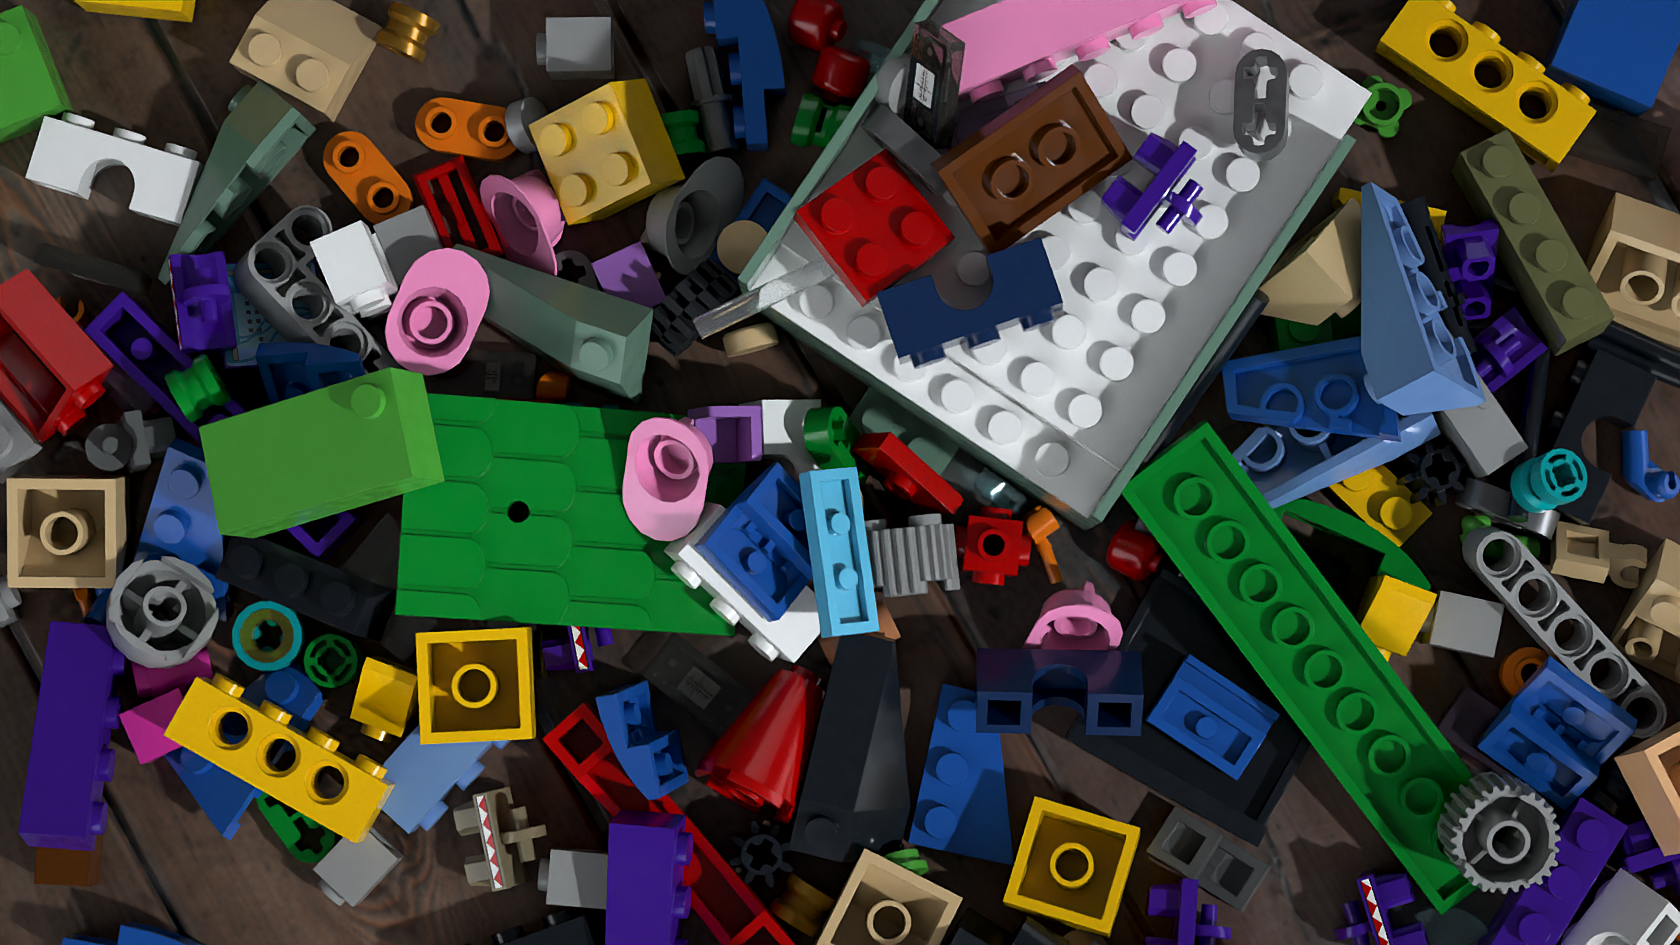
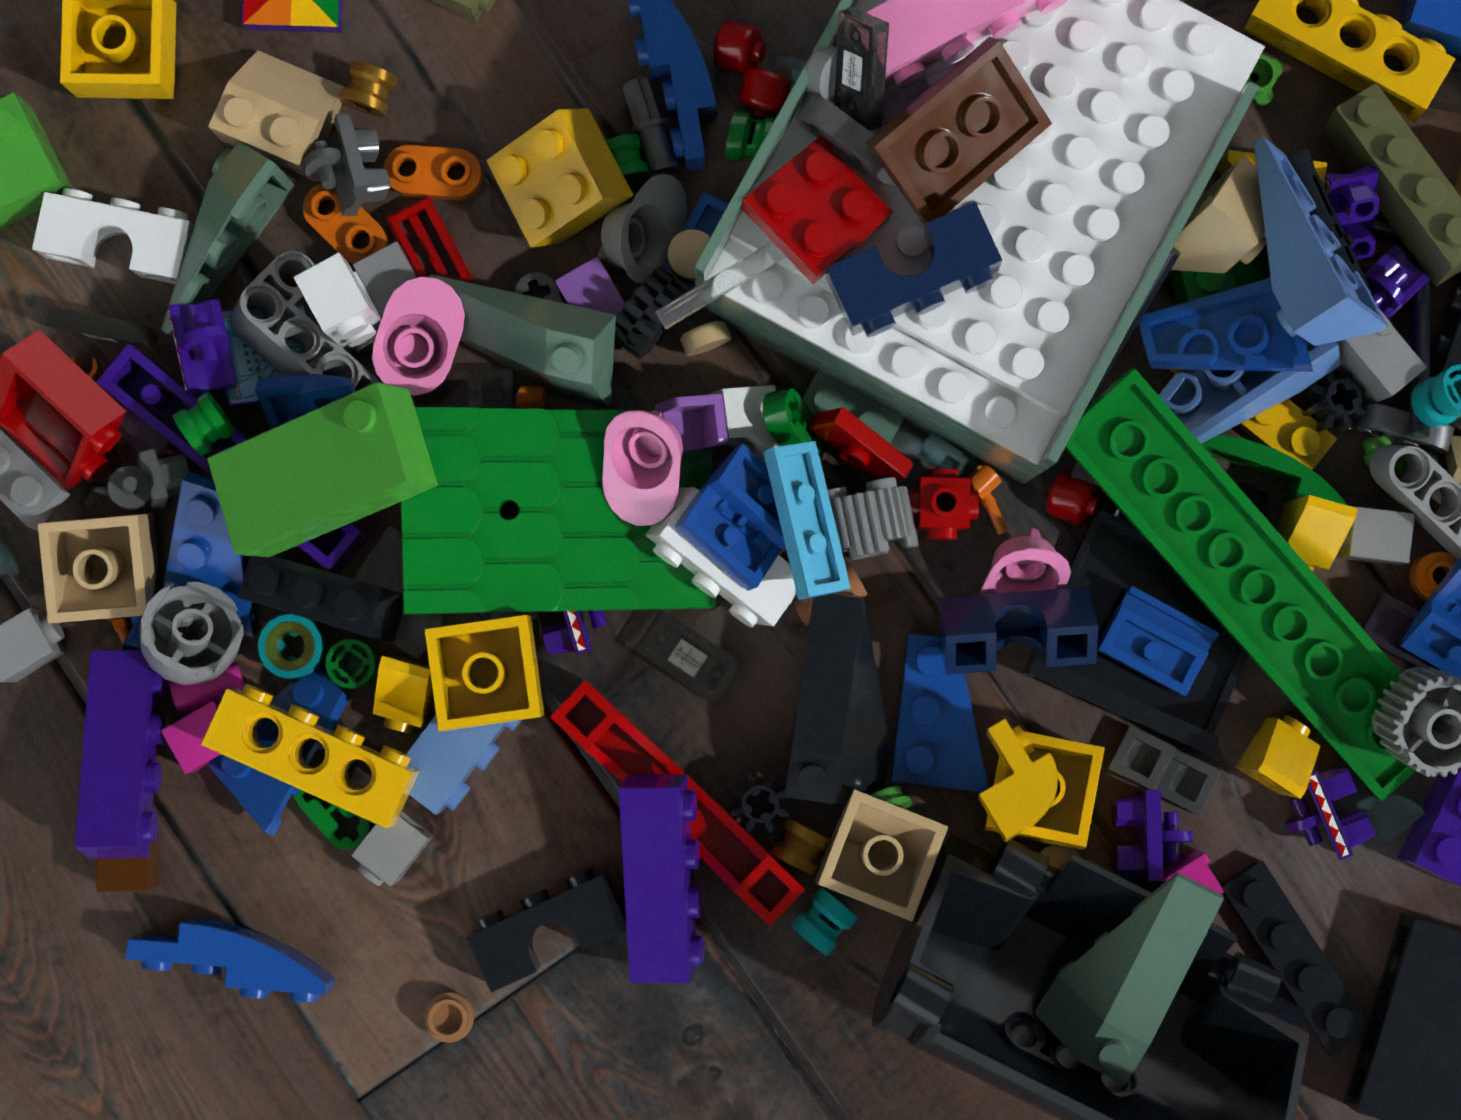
camera: 10 degrees left, 0 degrees up
(369, 117) = (340, 165): none -> dark grey hips
(504, 838) = (523, 809): dark tan hips -> none
(518, 117) = (475, 159): light grey tile -> none
(525, 218) = (490, 245): bright pink piece -> none
(574, 877) = (591, 840): light grey brick -> none
(577, 48) = (524, 88): light grey brick -> none
(648, 757) = (648, 724): blue slope -> none
(768, 745) = (756, 704): red cone -> none
(1050, 868) = (1030, 789): none -> yellow brick
(1169, 166) = (1085, 126): dark purple hips -> none
(1248, 104) = (1154, 63): flat silver beam -> none
(1335, 854) = (1281, 756): none -> yellow slope

